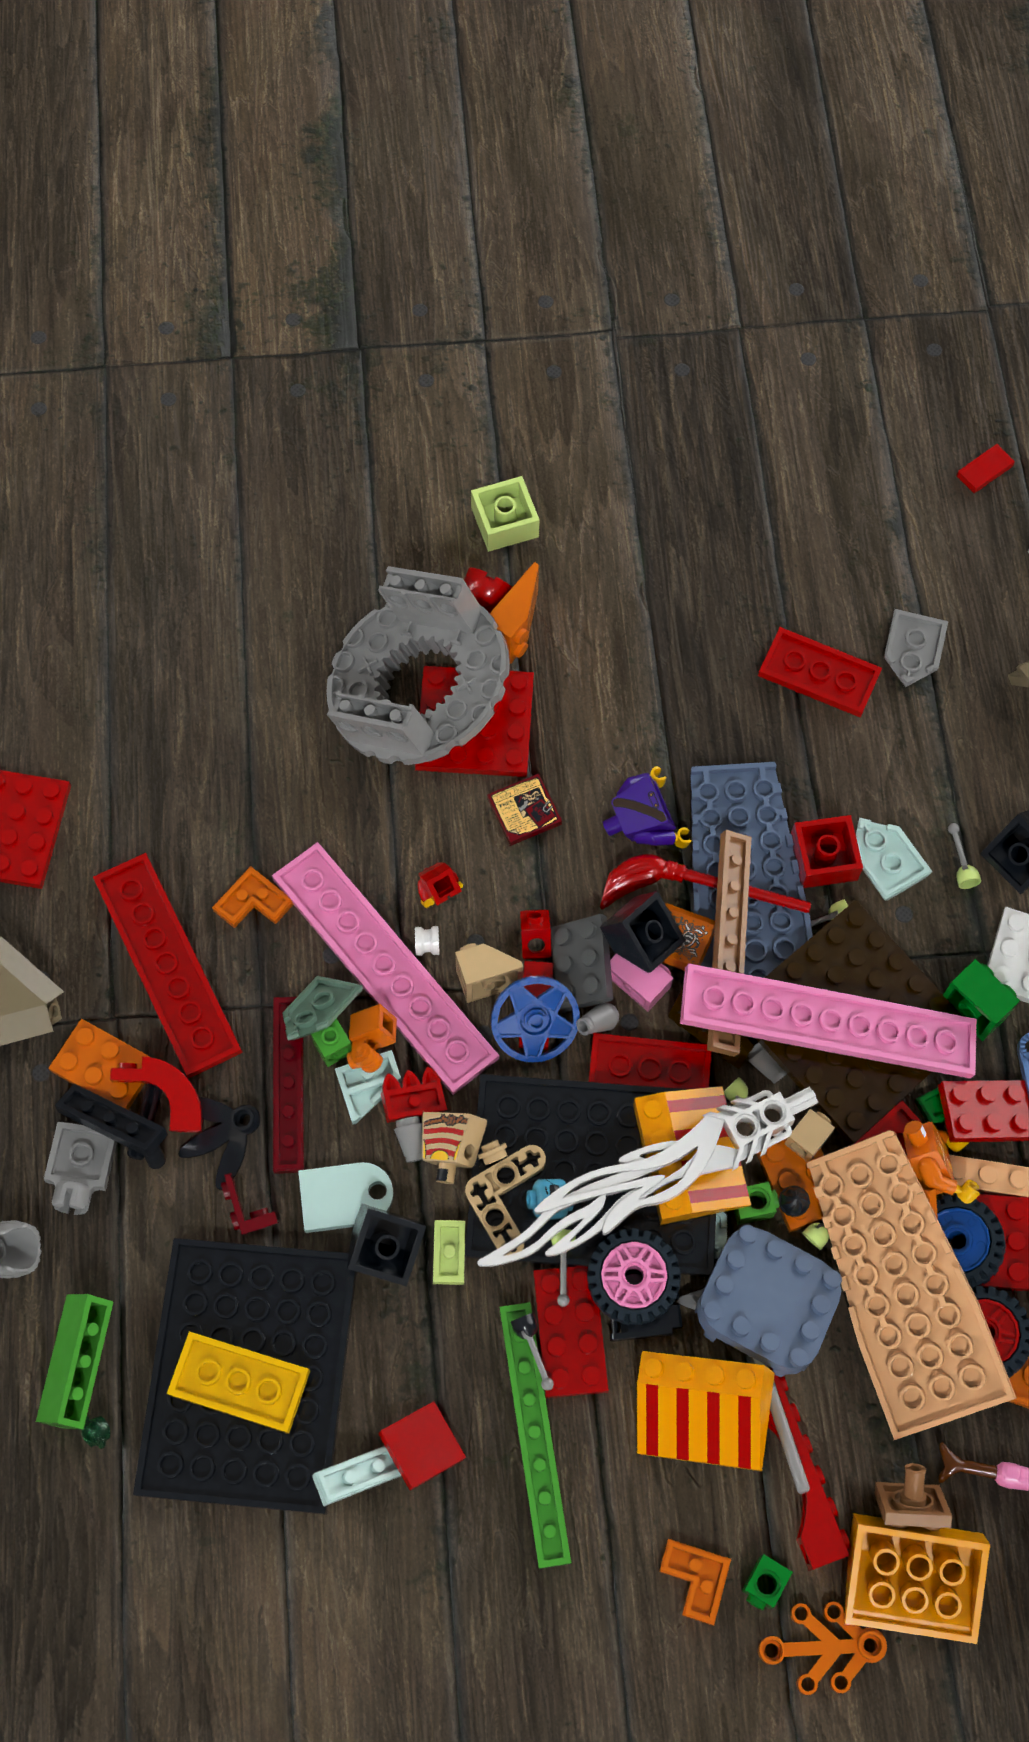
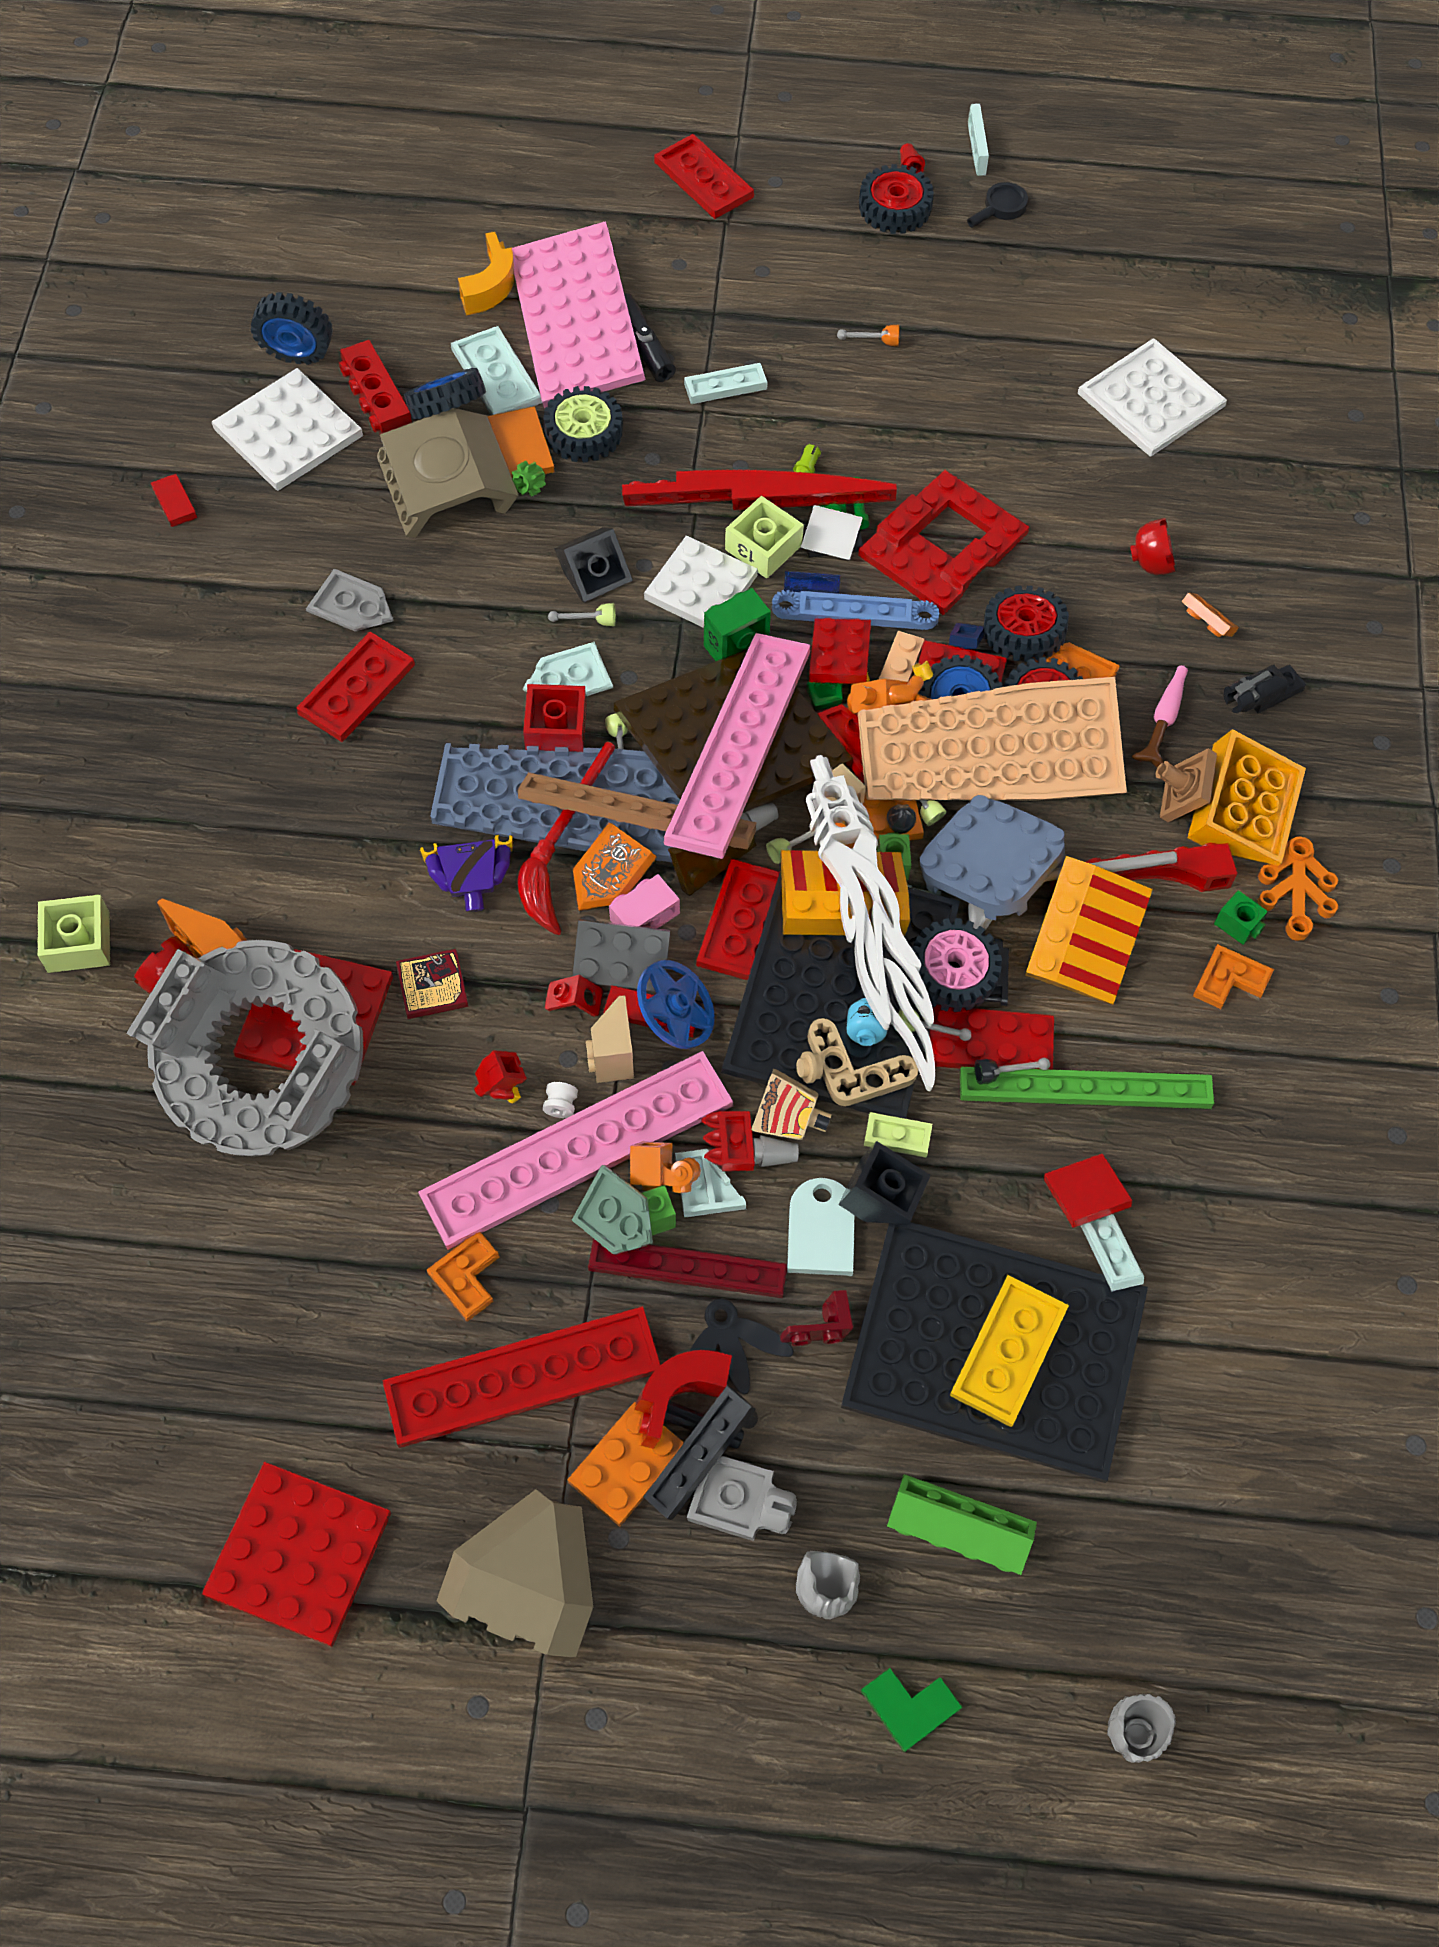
camera: 80 degrees left, 5 degrees down
(96, 1432) = (1038, 1511): clear green plate -> none
(599, 1019) = (683, 950): light grey cone -> none
(643, 931) = (606, 886): black slope -> none

